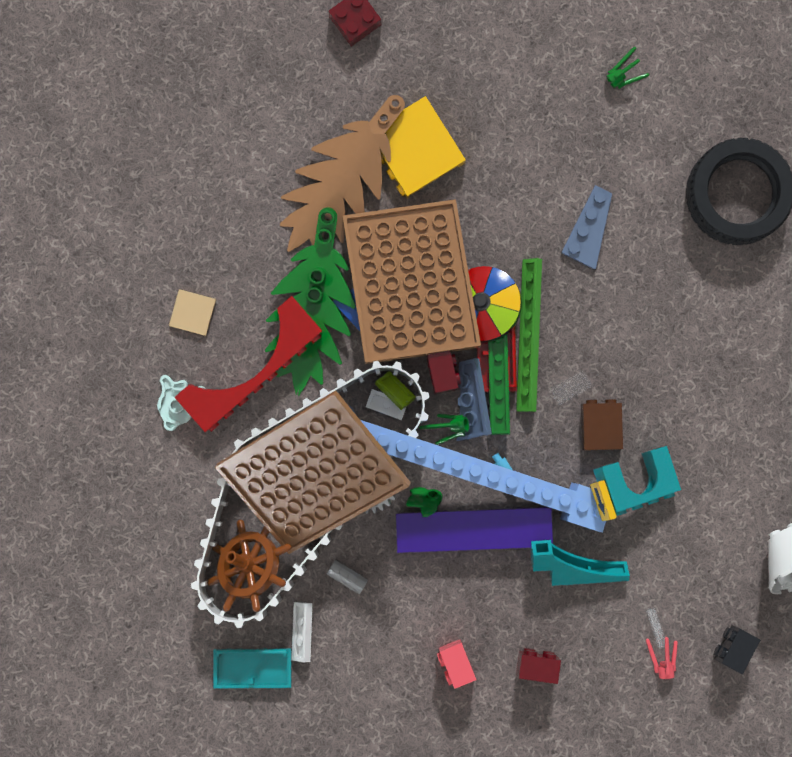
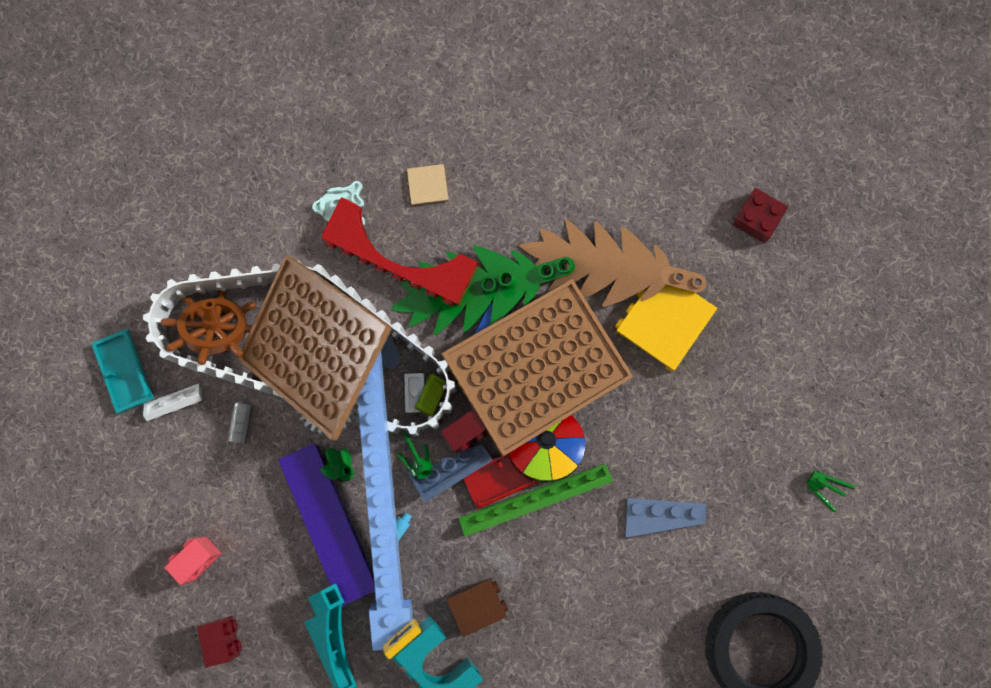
camera: 70 degrees right, 5 degrees down
(499, 386) = (473, 491): green tile -> none

